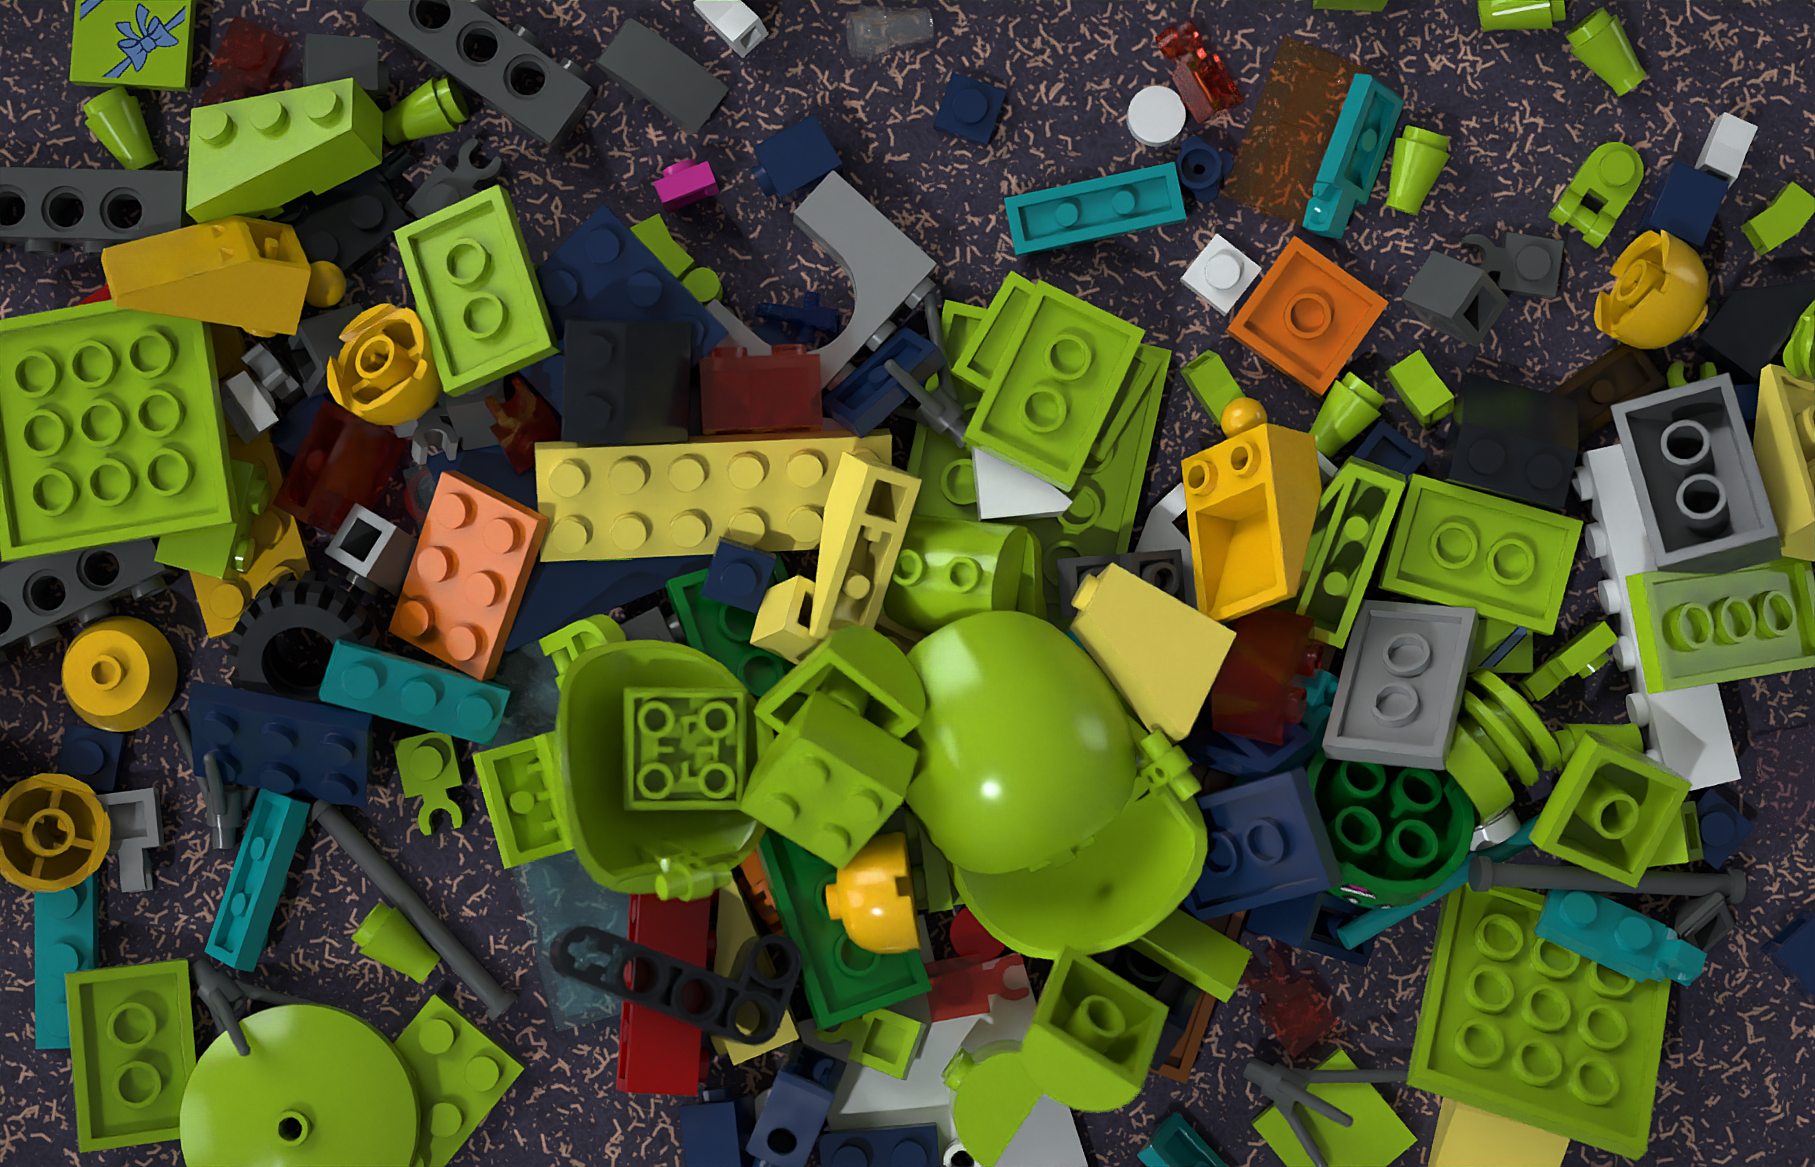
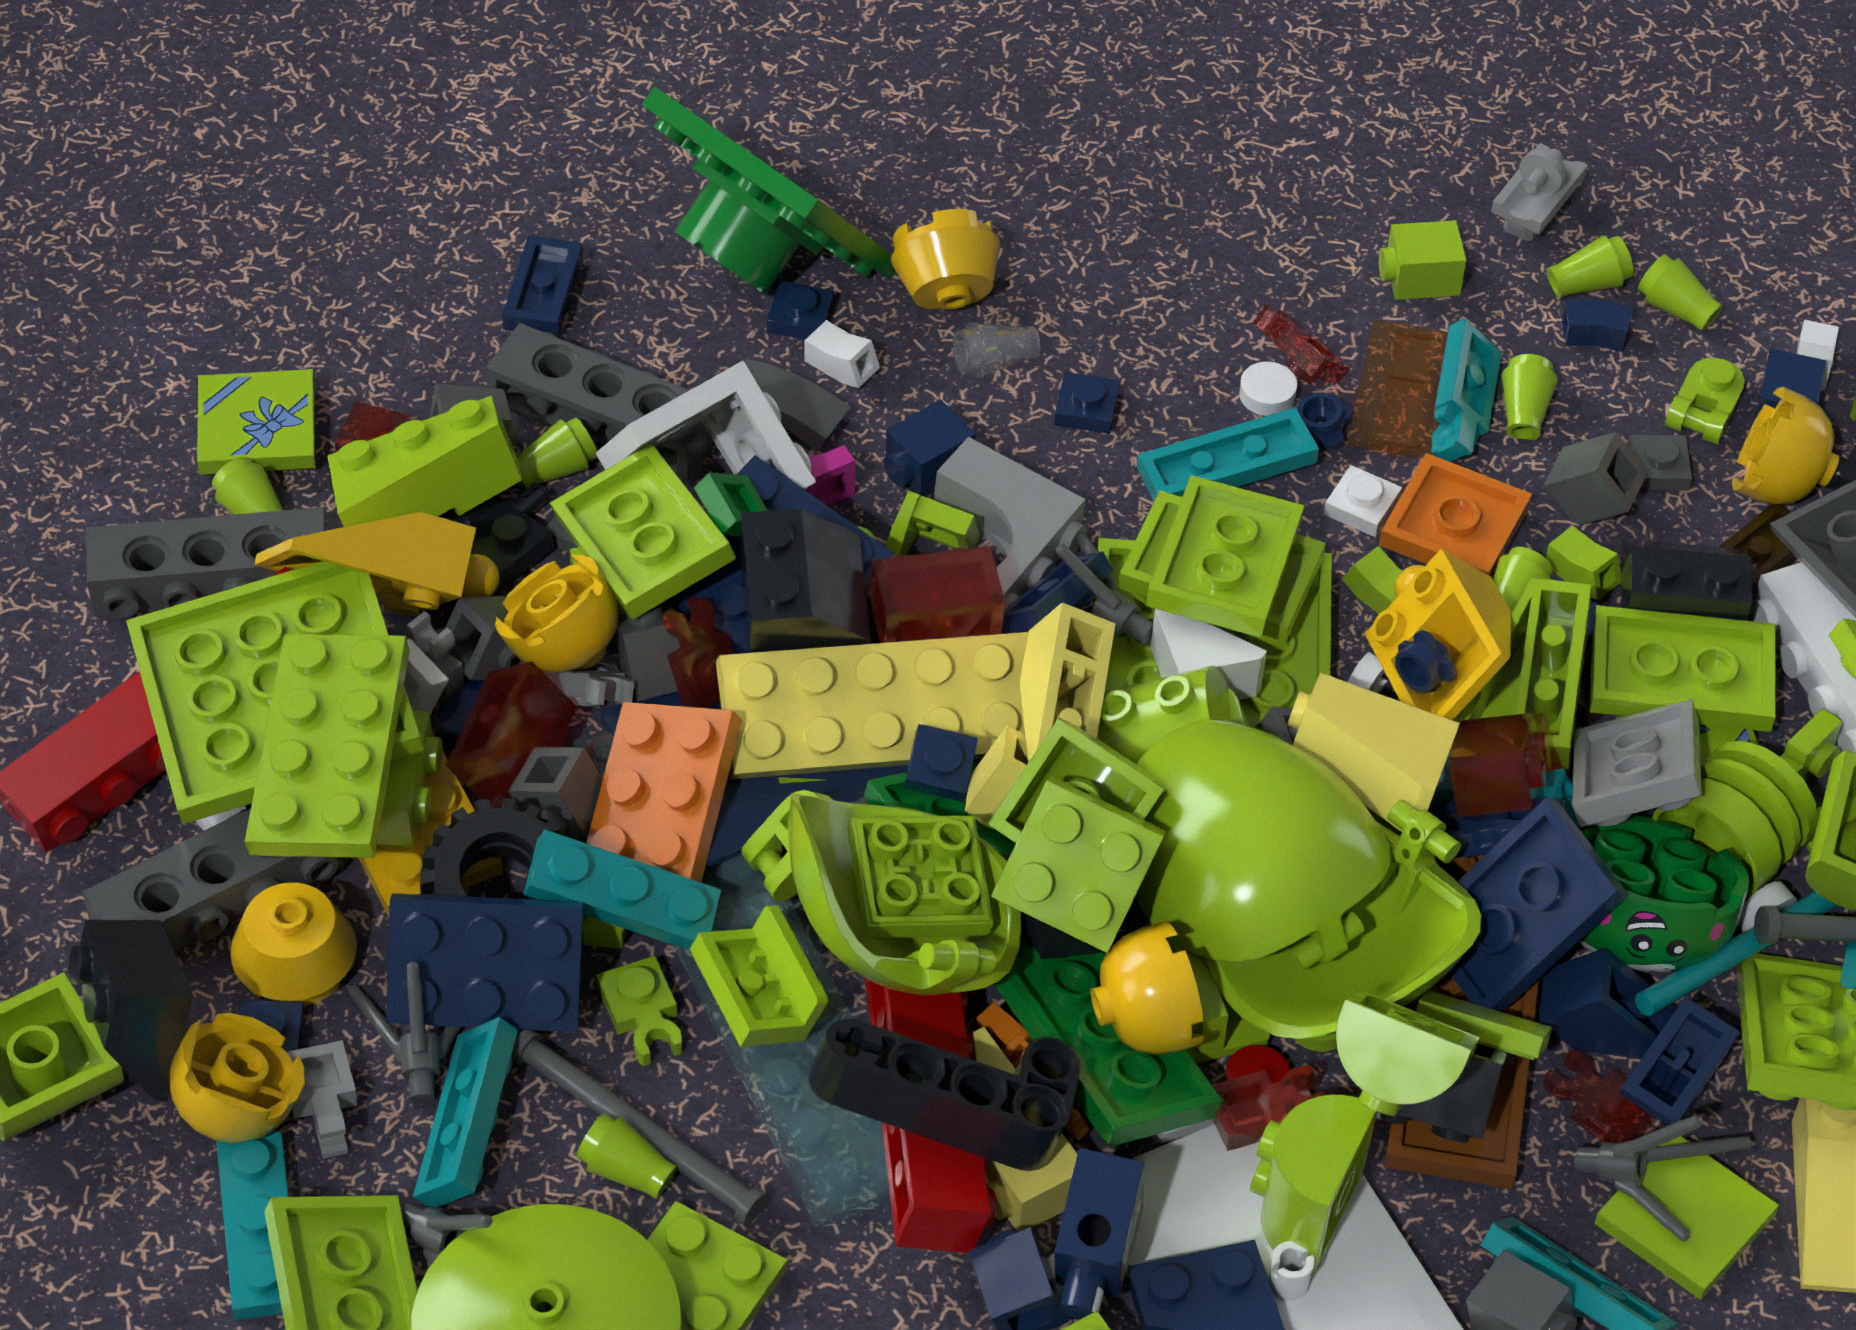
camera: 10 degrees left, 35 degrees down
(142, 522) = (328, 746): none -> lime plate
(549, 133) = (735, 415): none -> white bracket
(567, 284) = (726, 498): none -> green plate
(787, 256) = (932, 521): none -> lime tile
(879, 1041) = (1177, 1164): lime plate -> none
(1223, 540) = (1424, 663): none -> dark blue plate
(1356, 1005) = (1679, 1063): none -> dark blue slope
(1510, 78) = (1596, 323): none -> dark blue piece

